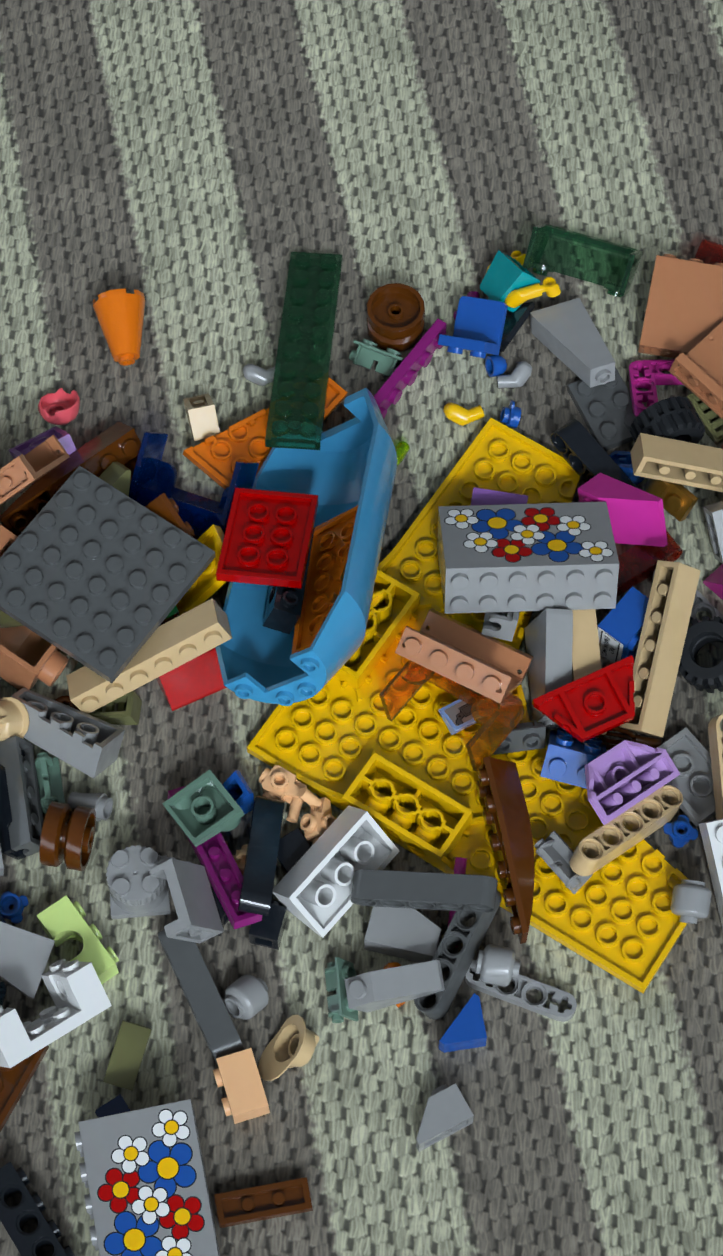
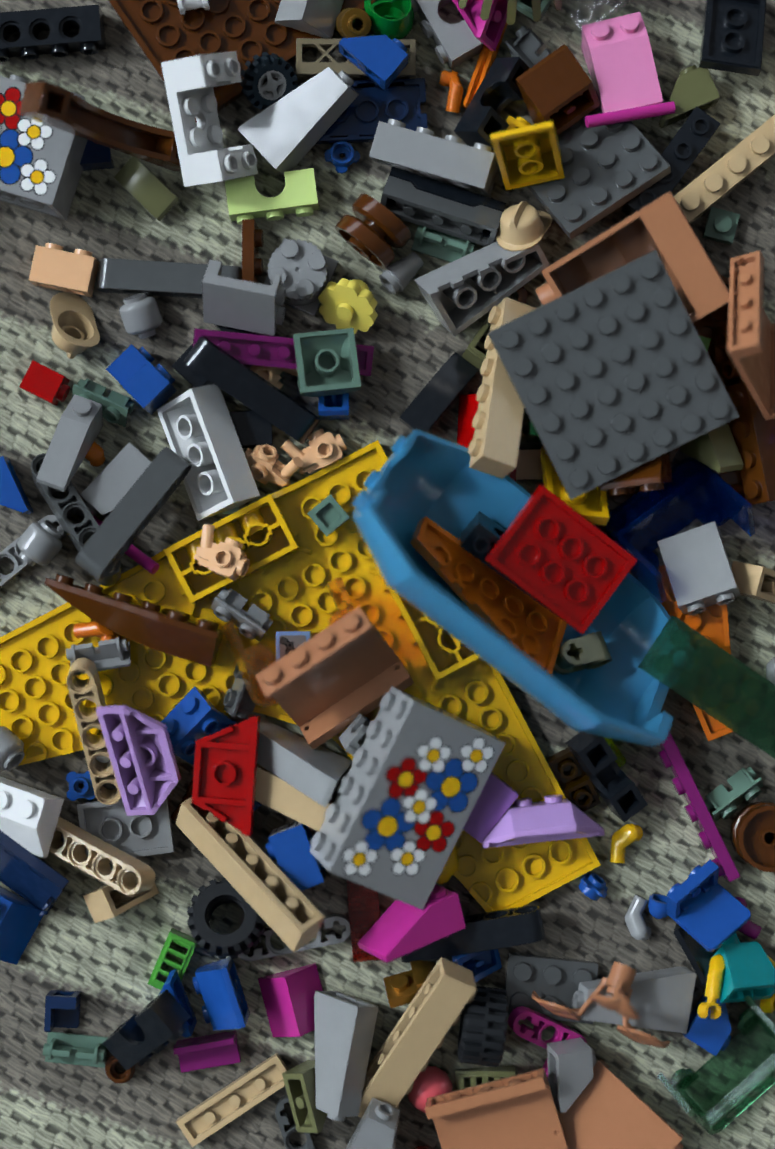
camera: 120 degrees right, 25 degrees up
(93, 1089) = (74, 115): none -> reddish brown arch
(143, 824) = (348, 305): none -> light yellow plant
(150, 924) = (251, 241): none -> reddish brown plate
(182, 721) = (438, 394): none -> black slope
(212, 455) = (699, 569): none -> light grey panel
(306, 953) = (143, 381): none -> blue brick
(331, 500) = (582, 653): none -> olive piece
(333, 744) = (328, 515): none -> sand green plate
(353, 1046) = (45, 383): none -> red brick
(420, 798) = (222, 558): none -> light nougat piece
(425, 434) = (609, 780): none -> black arch
(437, 469) = (573, 780): none -> dark brown slope
(459, 779) = (250, 623): none -> light grey hinge
(483, 464) = (541, 822): none -> lavender wedge
(542, 879) = (92, 629): none -> orange arm
(570, 285) = (709, 1033): none -> blue slope
(573, 348) = (619, 987): none -> nougat plant
(655, 357) = (569, 1070): none -> light grey slope

